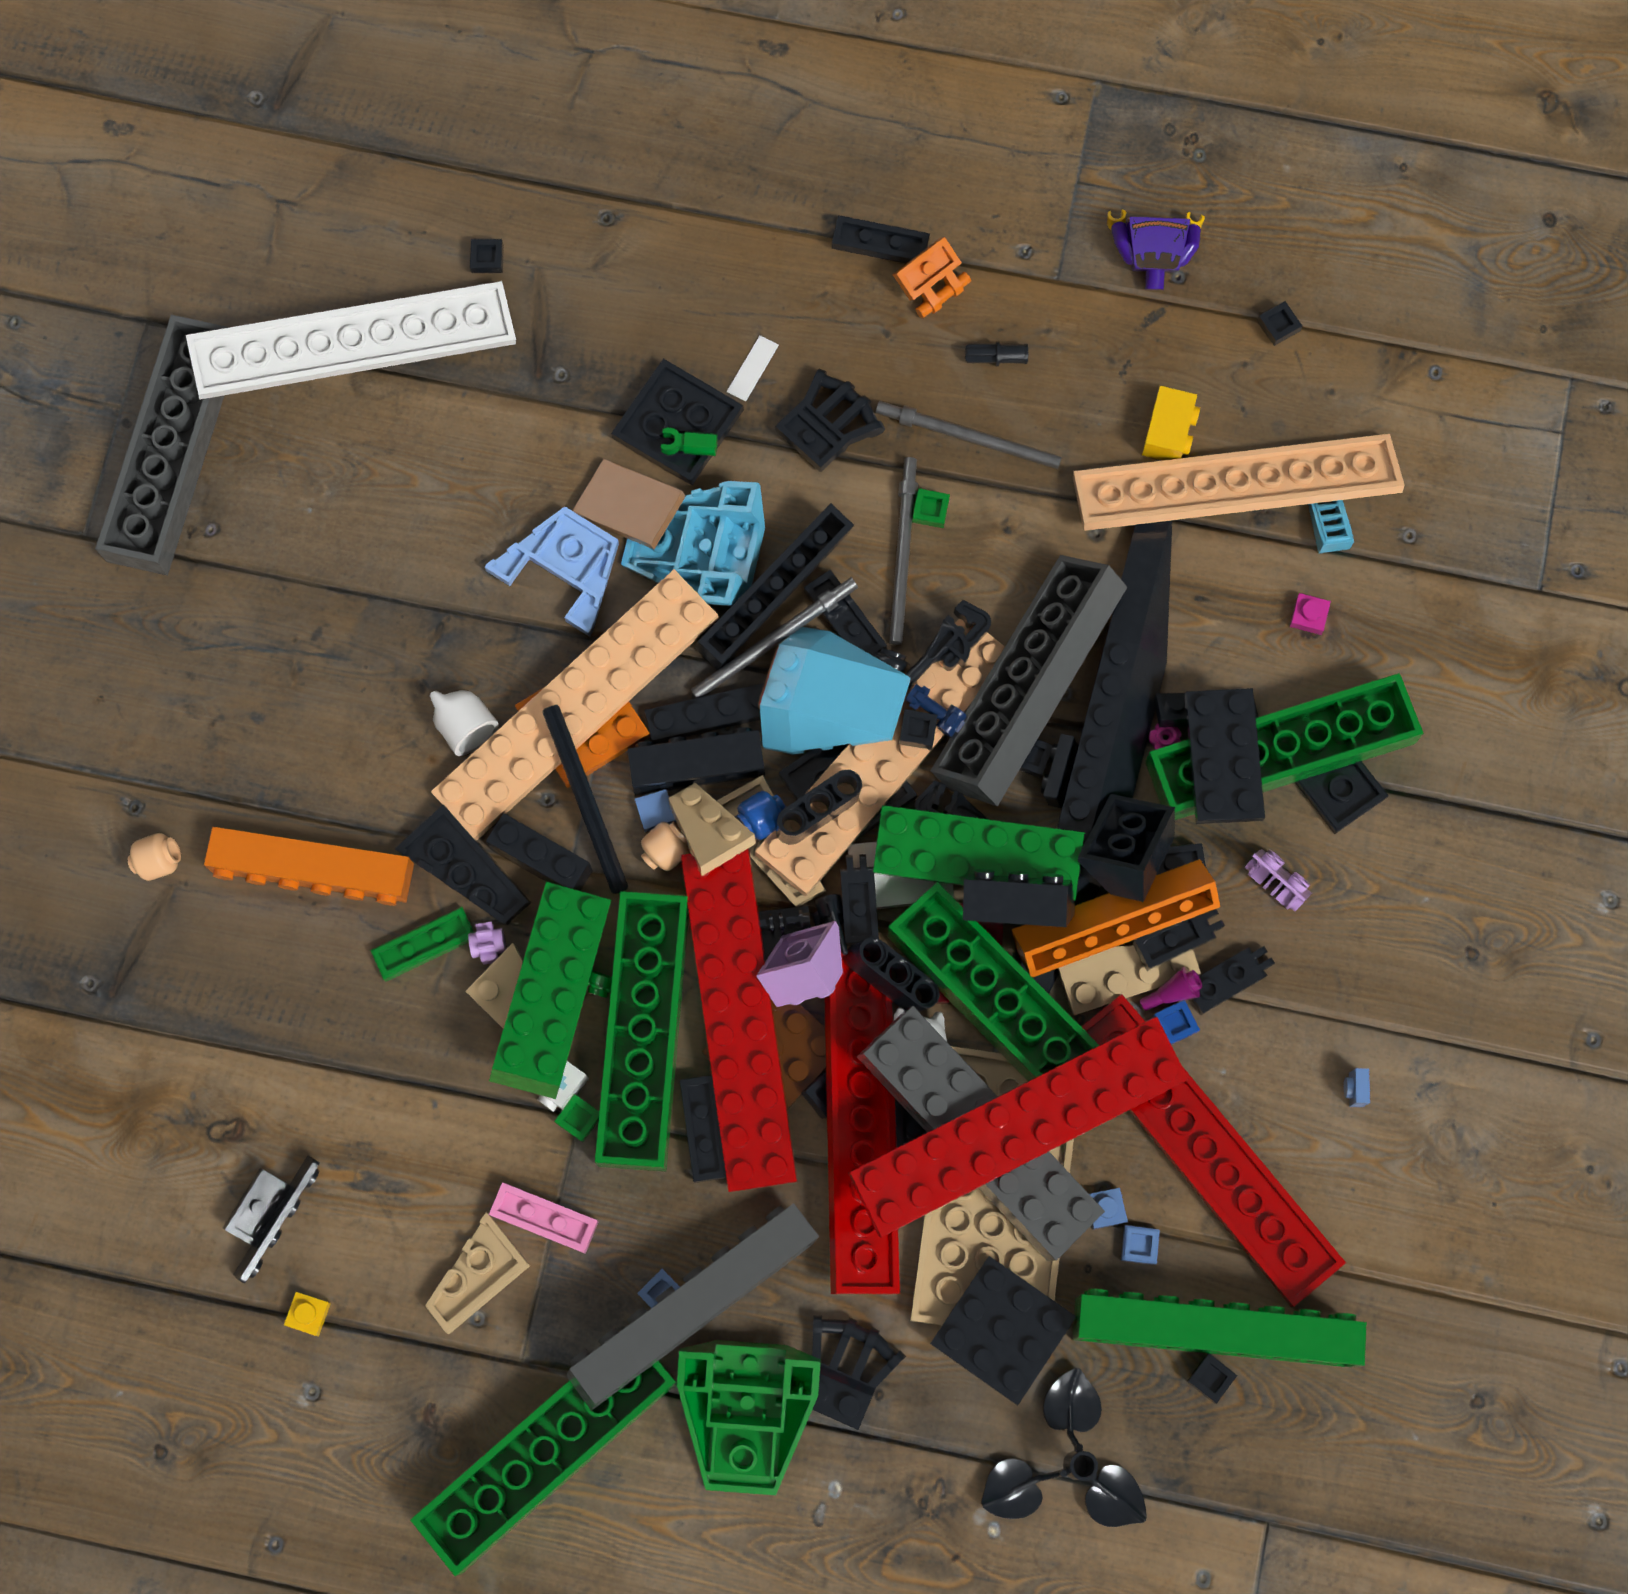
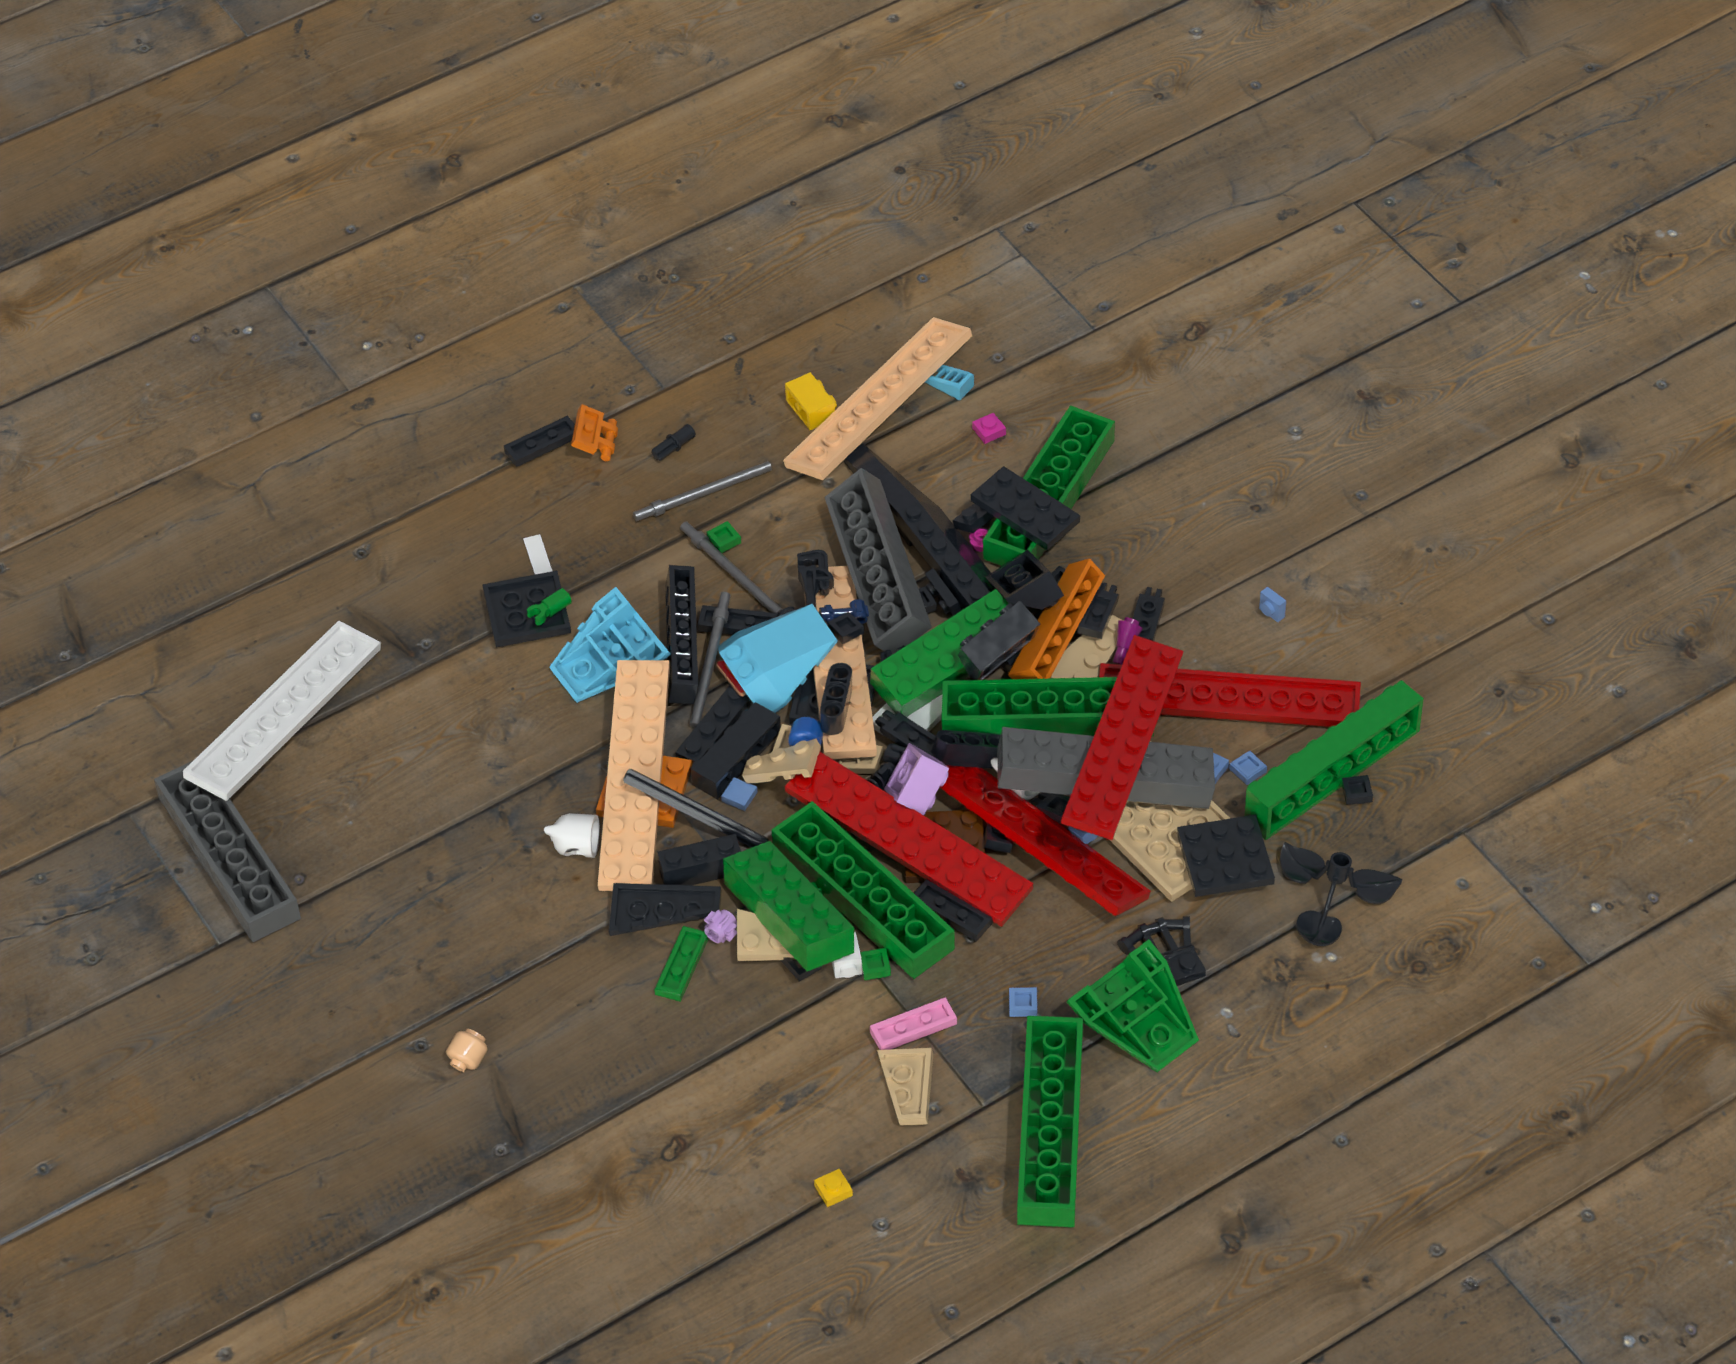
camera: 45 degrees left, 25 degrees down
(263, 1212) = (750, 1158): bracket -> none
(309, 865) = (567, 978): orange brick -> none
(486, 256) = (312, 619): black plate -> none
(572, 552) = (541, 714): light blue wing -> none
(629, 503) = (546, 664): medium nougat tile -> none
(664, 846) = (767, 801): light nougat head -> none
(691, 1306) = (1049, 976): dark grey brick -> none
(818, 438) = (615, 554): black plate -> none
(1155, 244) = (701, 328): dark purple torso -> none
(1269, 862) = (1108, 541): lavender hinge -> none
(1279, 323) = (813, 314): black plate -> none
(1343, 794) = (1104, 492): black tile -> none

